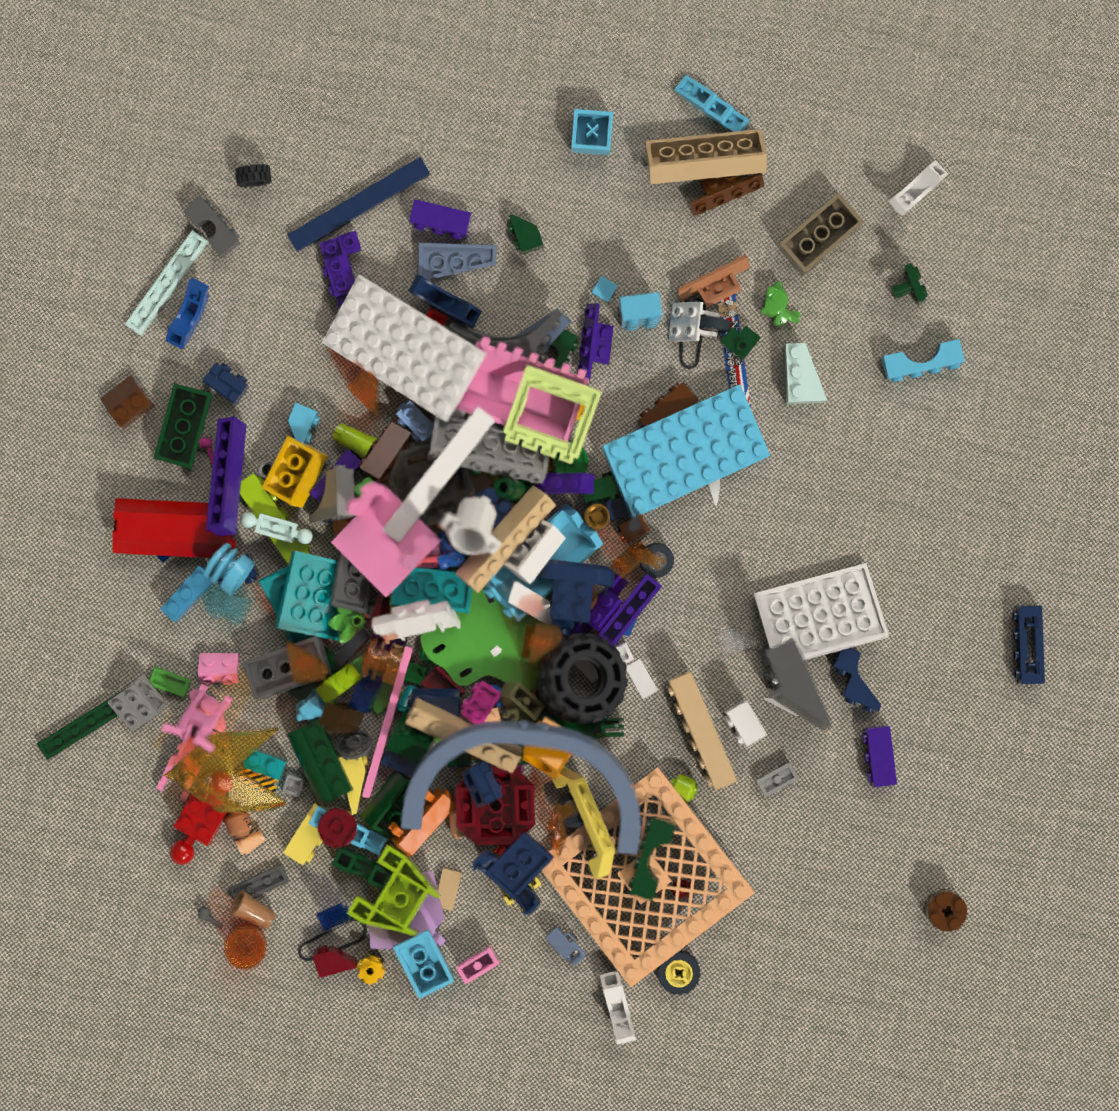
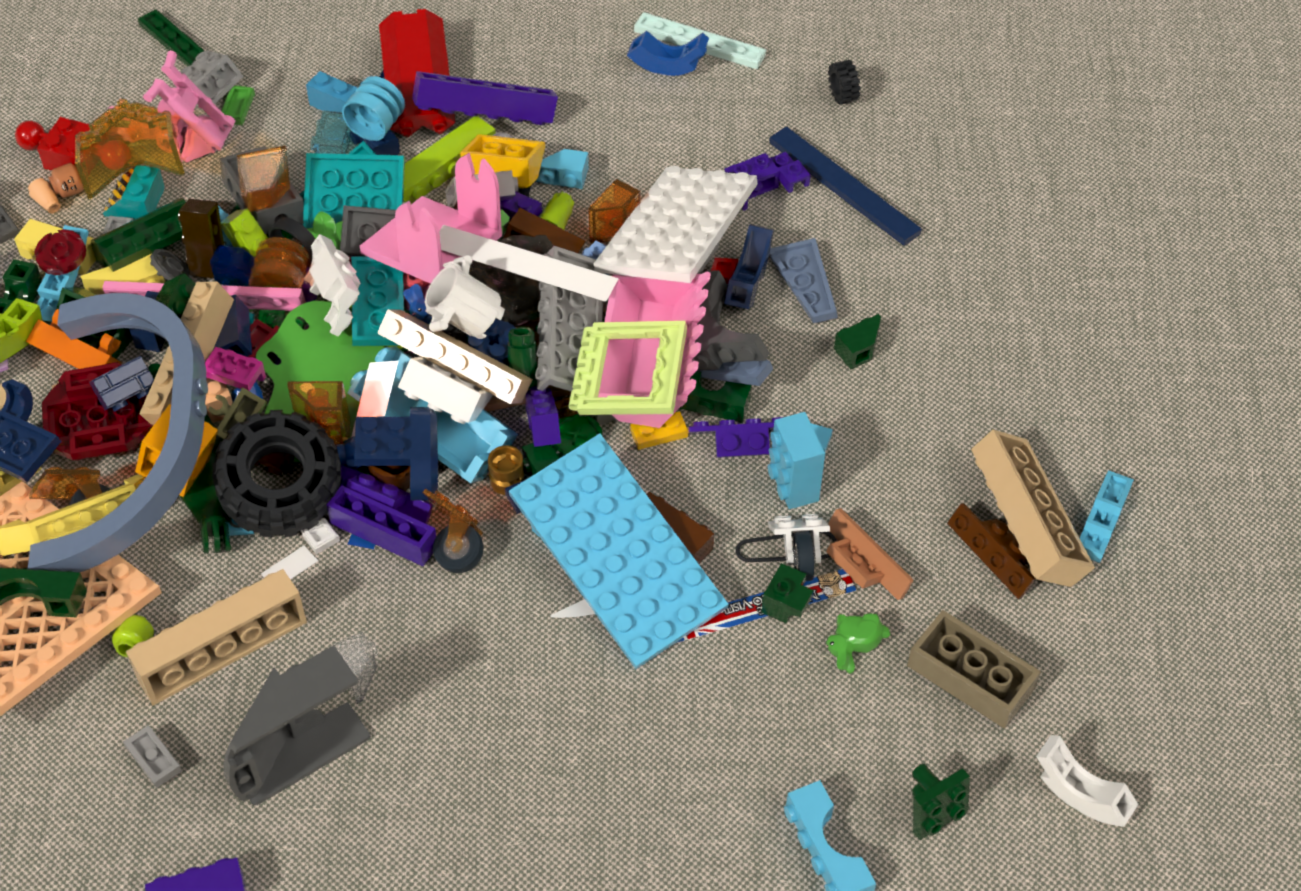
camera: 80 degrees right, 35 degrees down
(127, 402) = (552, 26): reddish brown slope -> none
(183, 426) = (539, 65): dark green brick -> none
(202, 213) = (784, 55): dark grey arch -> none
(218, 668) = (256, 134): bright pink bracket -> none
(226, 383) = (597, 98): dark blue brick -> none
(276, 528) = (431, 151): light aqua plate -> none
(440, 219) = (850, 257): dark purple brick -> none
(592, 132) = (1016, 384): medium azure brick -> none
(633, 529) = (498, 510): reddish brown slope -> none
(745, 723) = (230, 688): white brick -> none
(801, 378) = (760, 680): light aqua wedge -> none
(823, 612) = (408, 766): white plate -> none
(855, 688) = (302, 837): dark blue arch -> none

